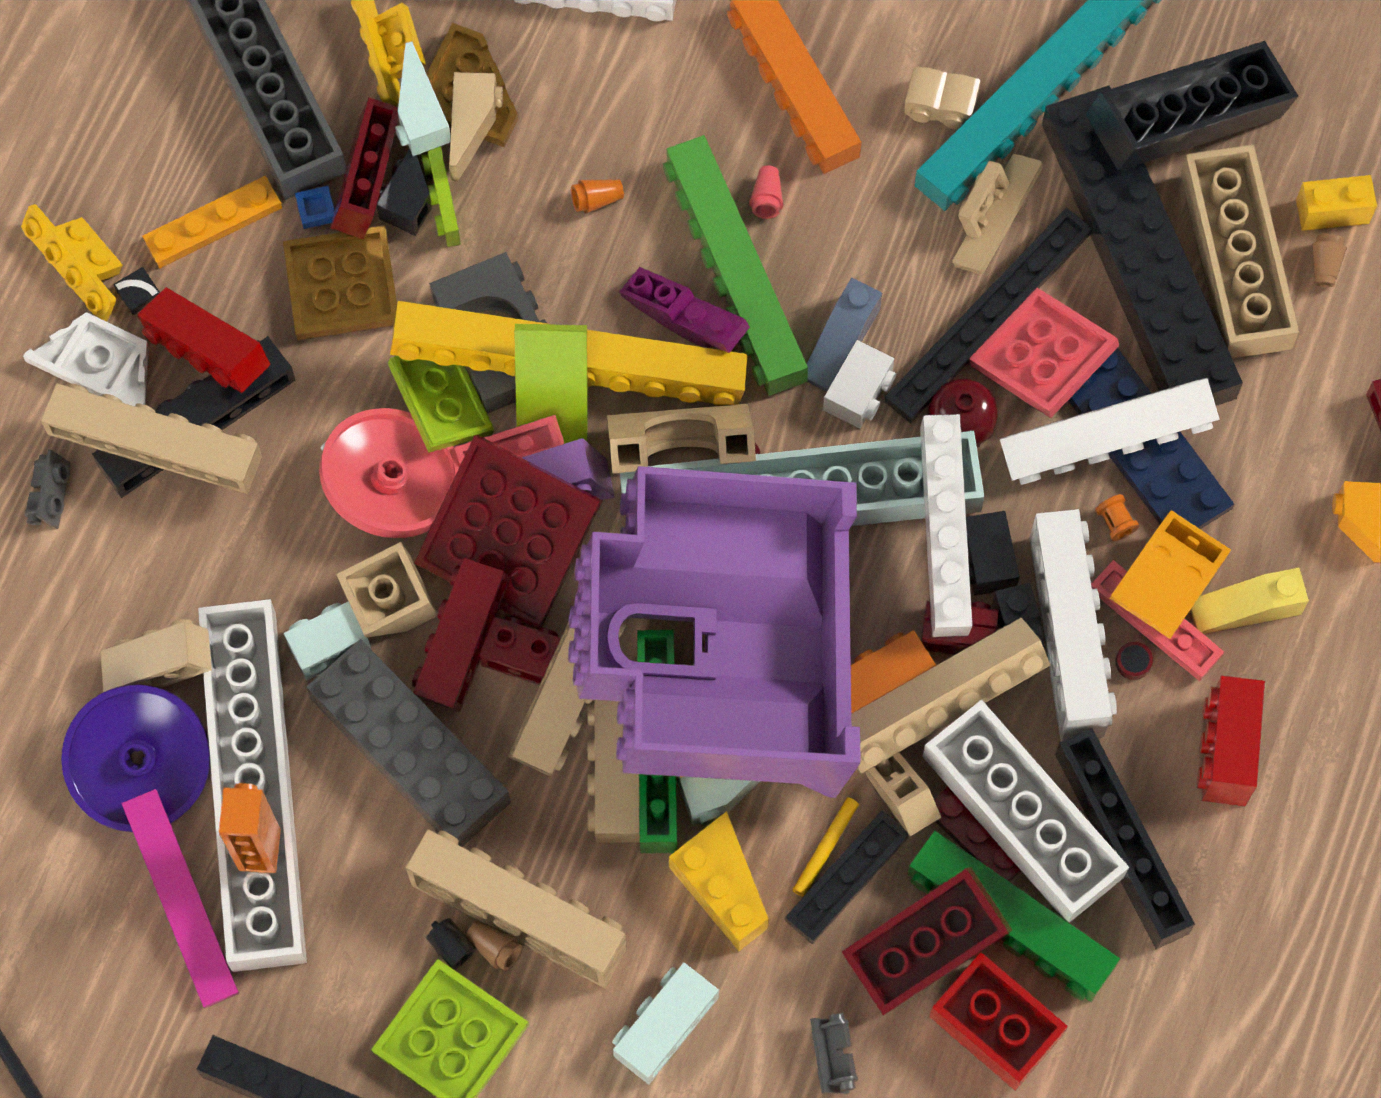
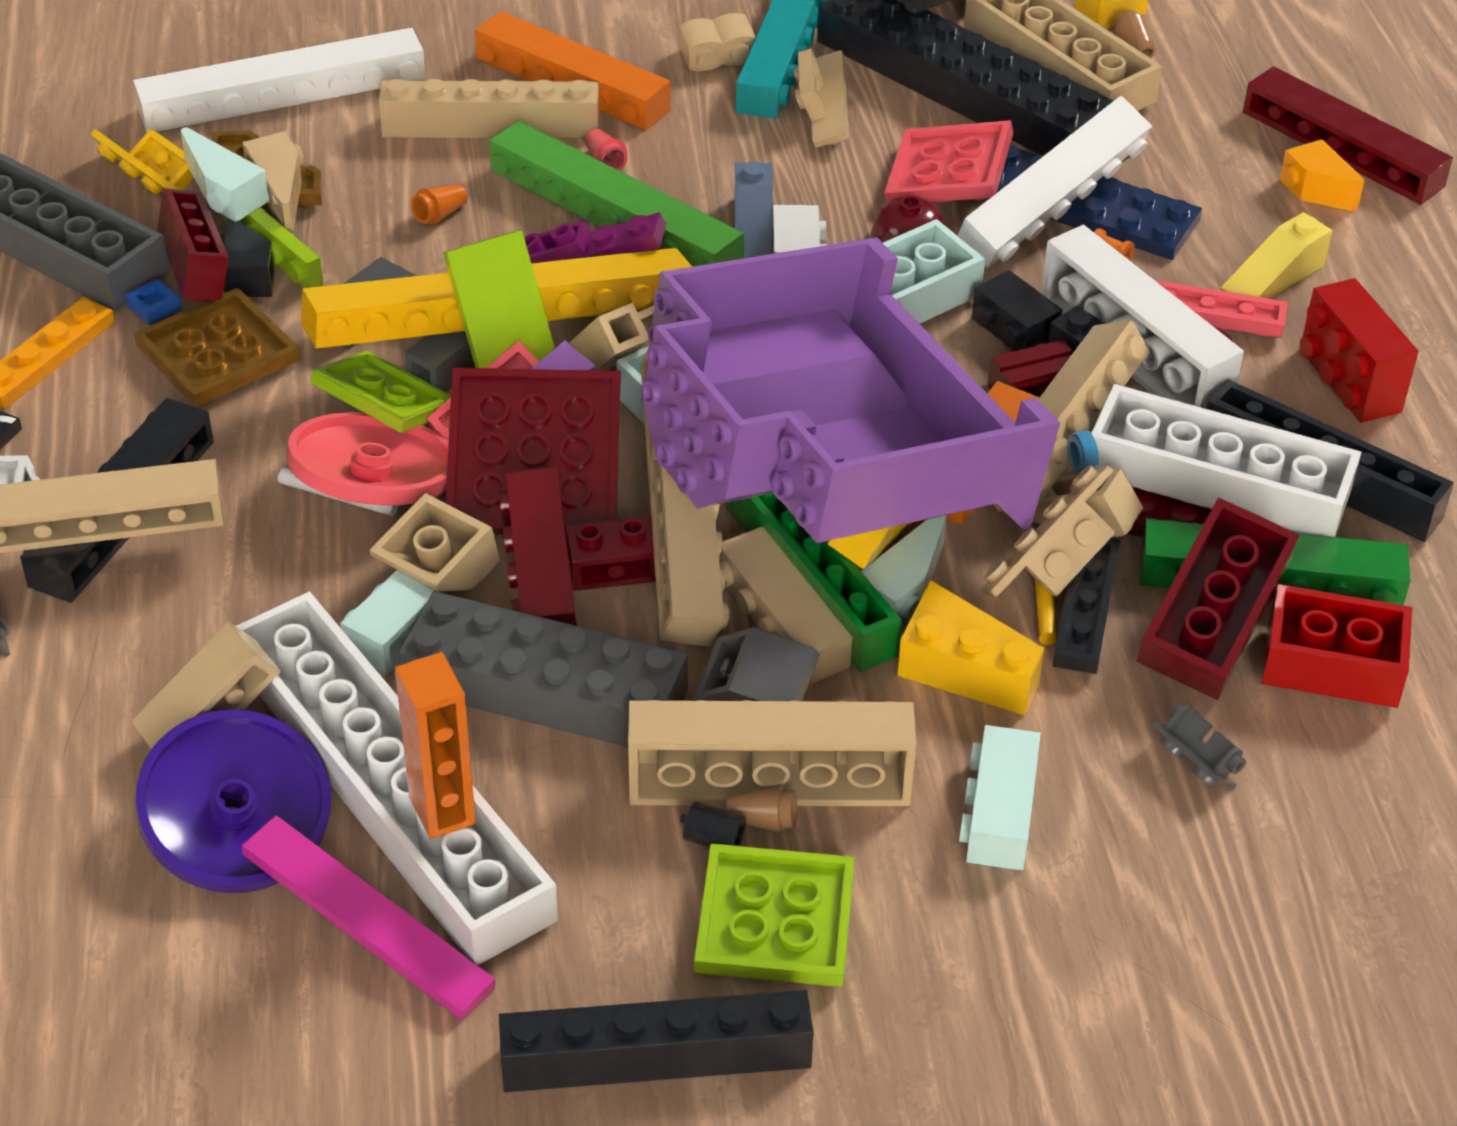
camera: 30 degrees left, 25 degrees down
(203, 340) = (97, 419): red brick -> none
(545, 836) = (757, 668): none -> dark grey slope
(695, 99) = (487, 107): none -> tan brick
(848, 823) = (1061, 542): none -> tan bracket
(916, 751) = (1082, 450): none -> dark azure tile
(946, 526) = (973, 280): white brick -> none
(987, 314) = (876, 158): black plate -> none
(1170, 574) = (1196, 256): light orange slope -> none

